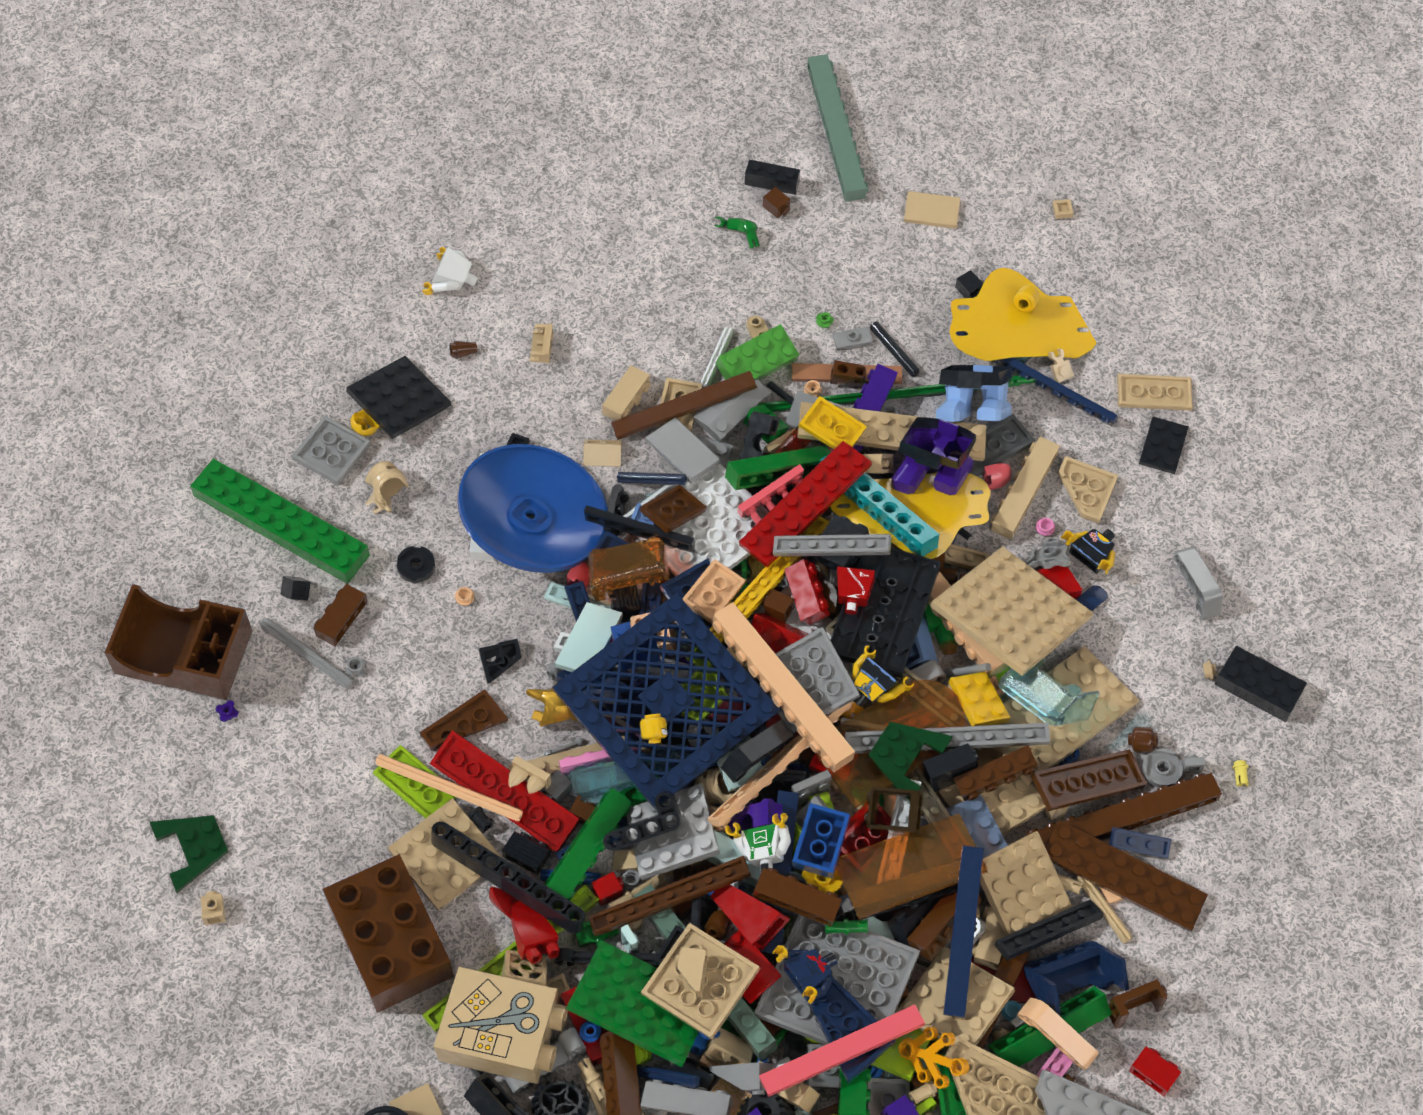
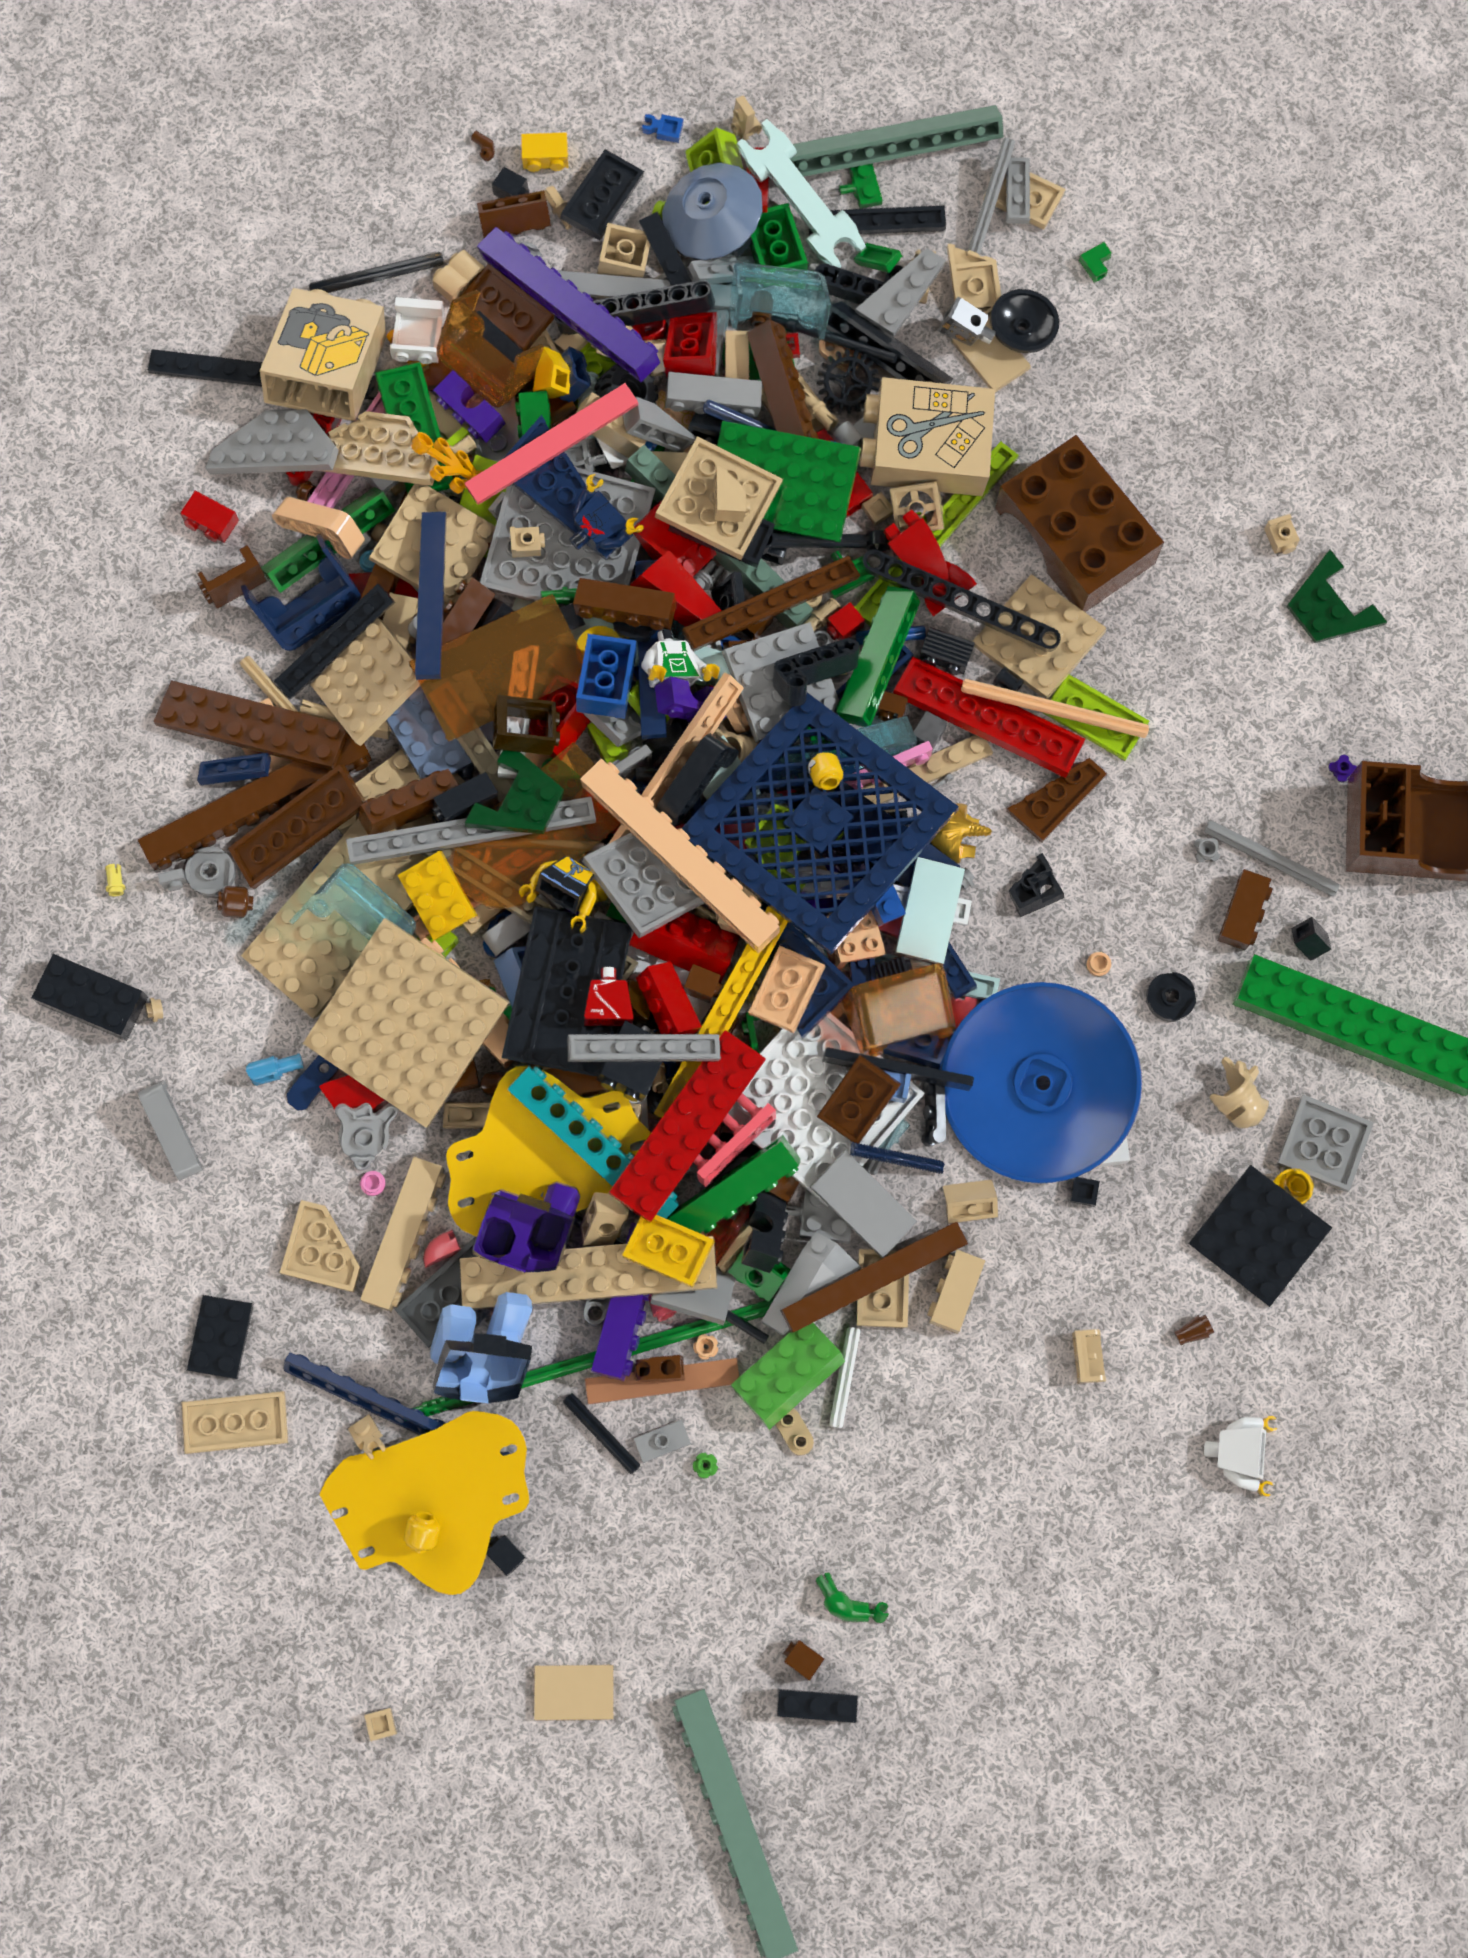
camera: 170 degrees right, 15 degrees up
(536, 777) = (971, 731): tan tile -> none
(629, 940) = (807, 558): light aqua plate -> none
(717, 924) = (714, 584): reddish brown brick -> none
(880, 979) = (526, 549): none -> tan brick
(968, 670) = (456, 946): light grey bar -> none
(1092, 548) = (306, 1153): torso -> none
(1117, 613) = (272, 1068): none -> dark azure arm

